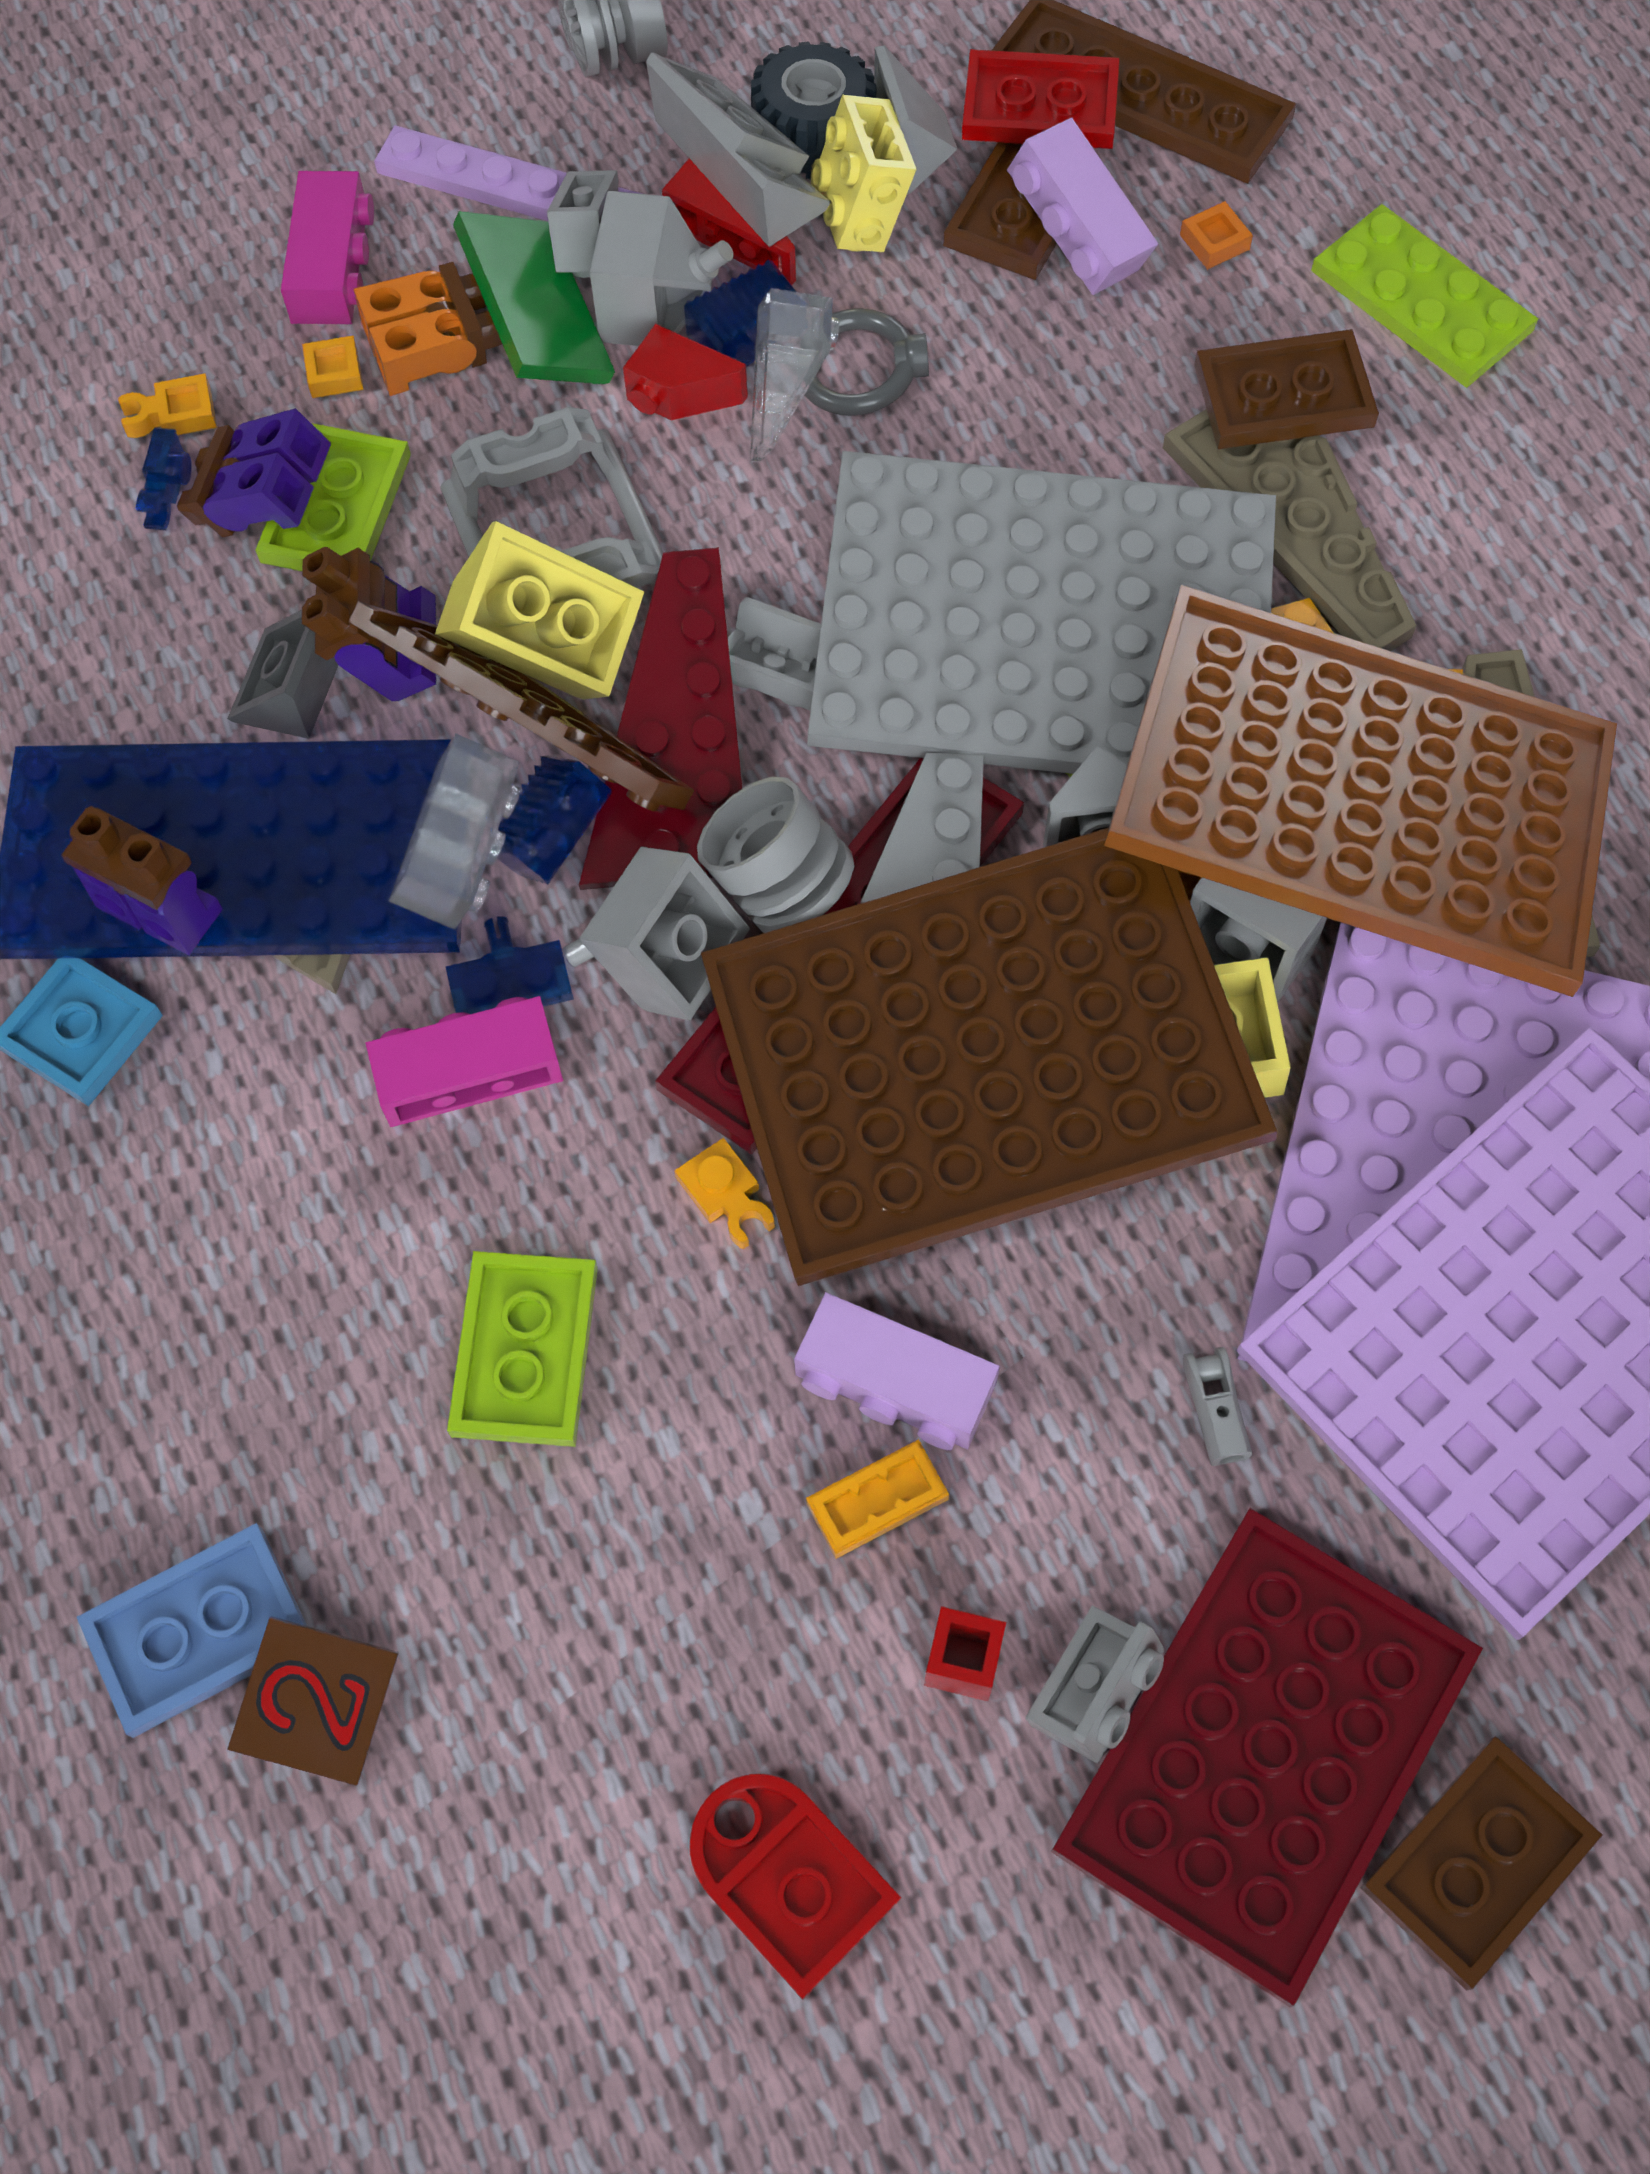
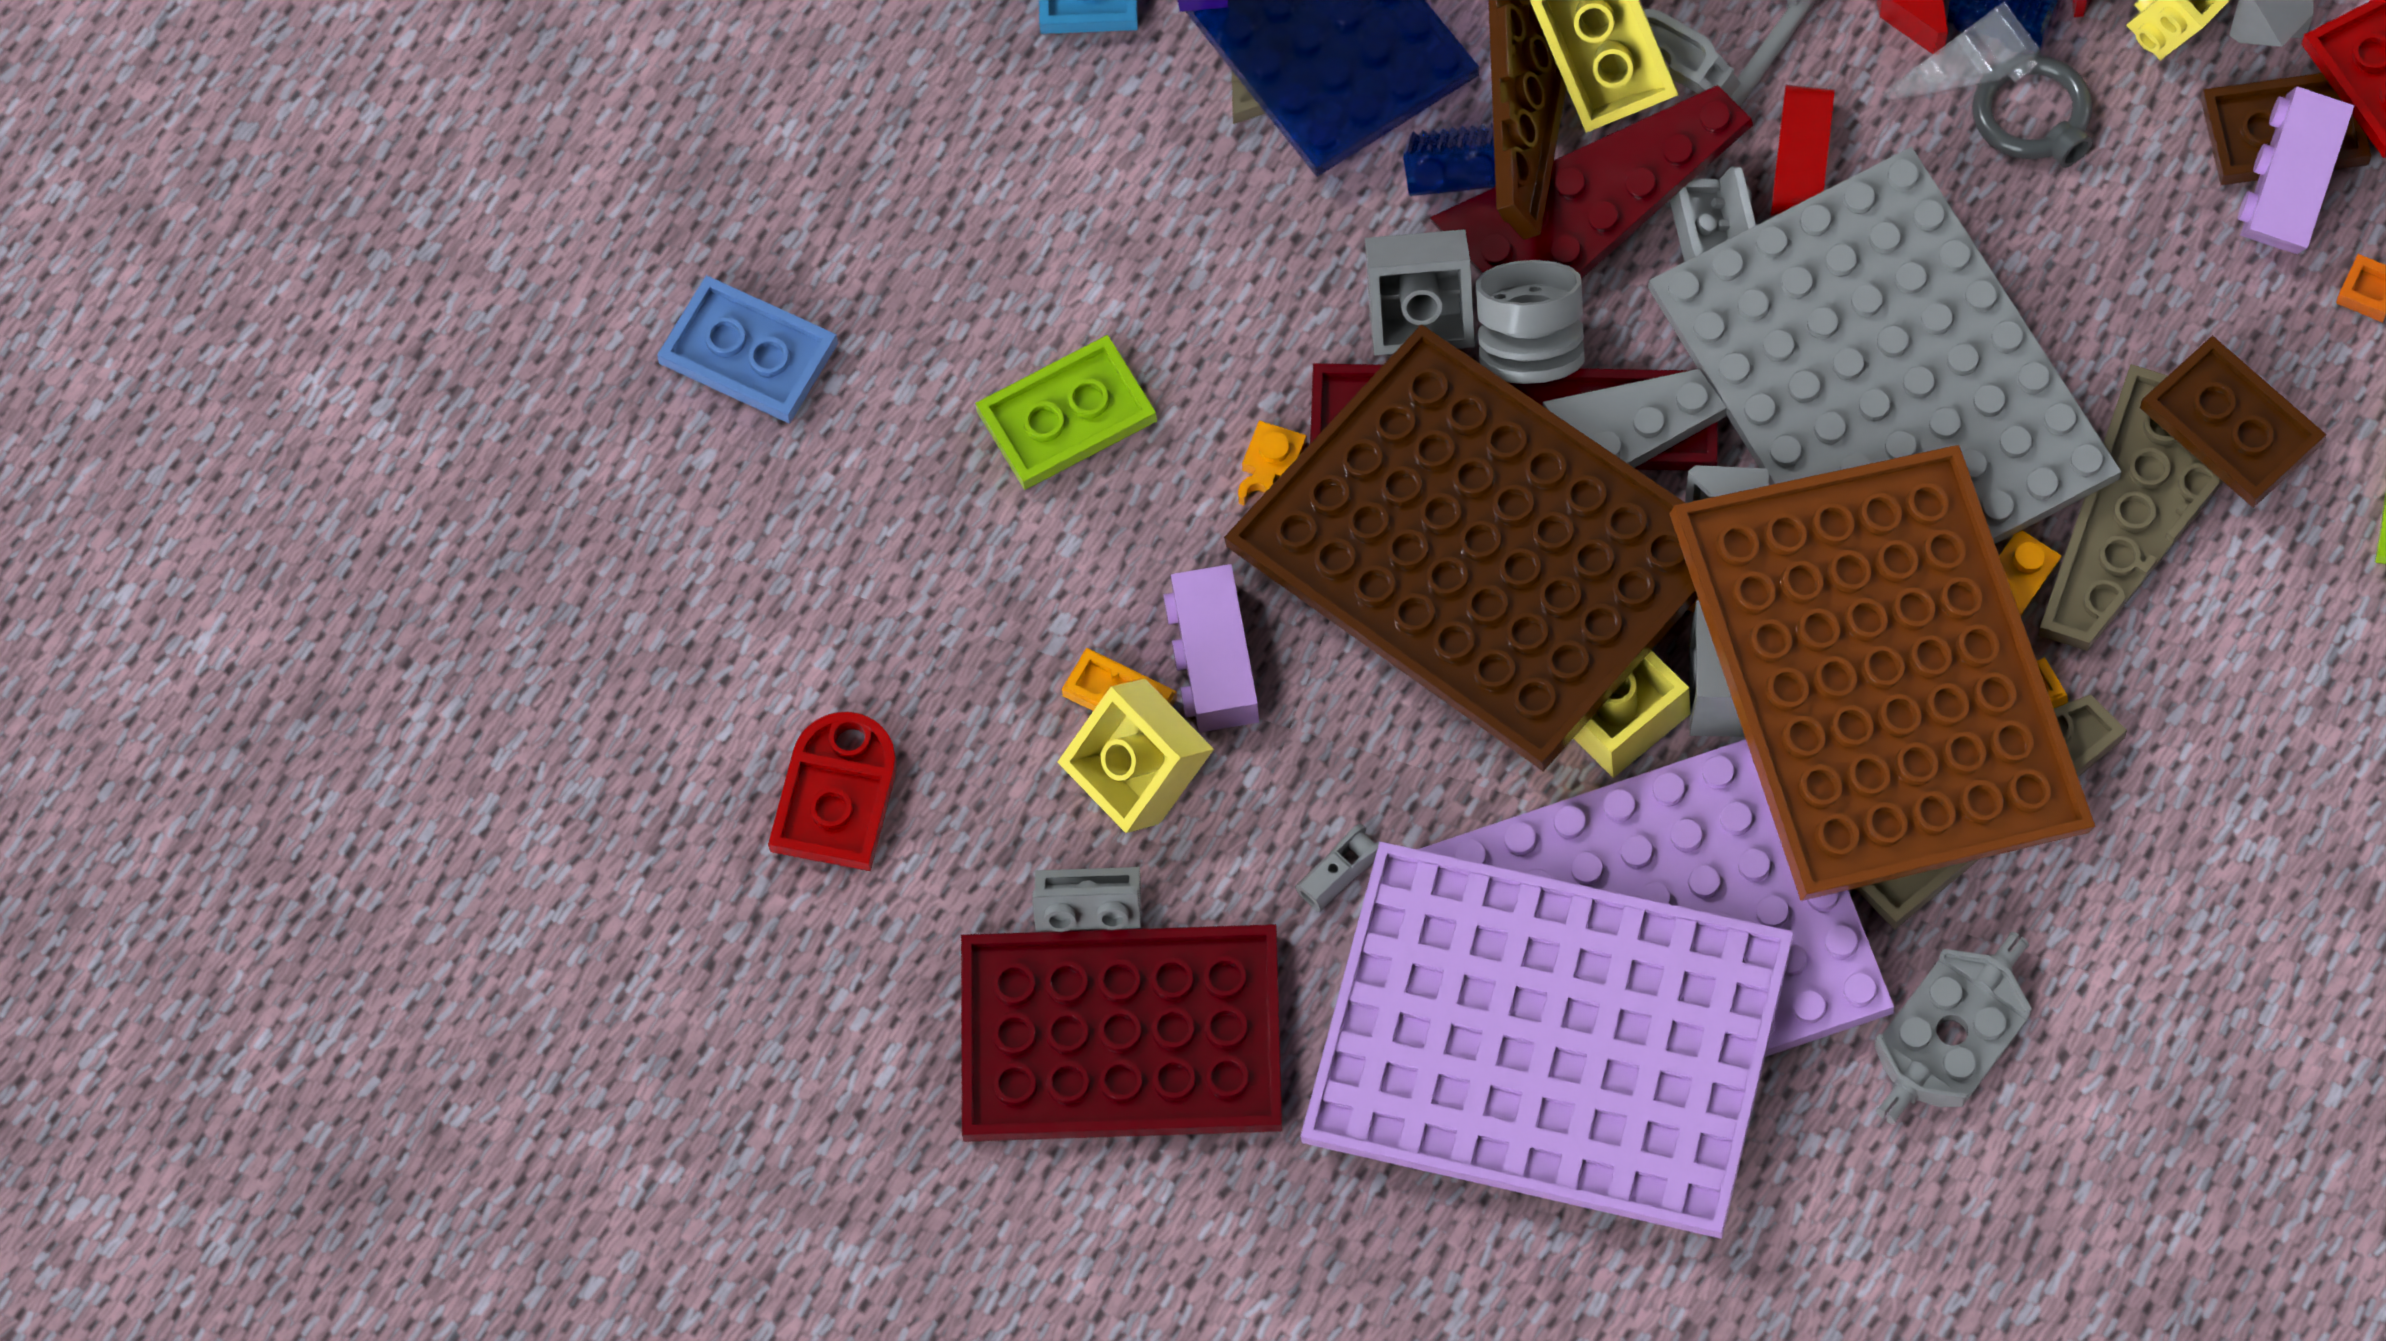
camera: 60 degrees right, 0 degrees up
(313, 1701) = (751, 446): reddish brown tile -> none
(457, 833) = (1389, 108): clear brick -> none
(463, 1060) = (1240, 235): dark pink brick -> none
(509, 973) = (1325, 221): clear blue plate -> none
(763, 546) = (1802, 146): none -> red beam
(964, 1653) = (1047, 803): red brick -> none
(980, 1525) = (1135, 755): none -> light yellow brick
(1481, 1863) = (1136, 1203): reddish brown plate -> none

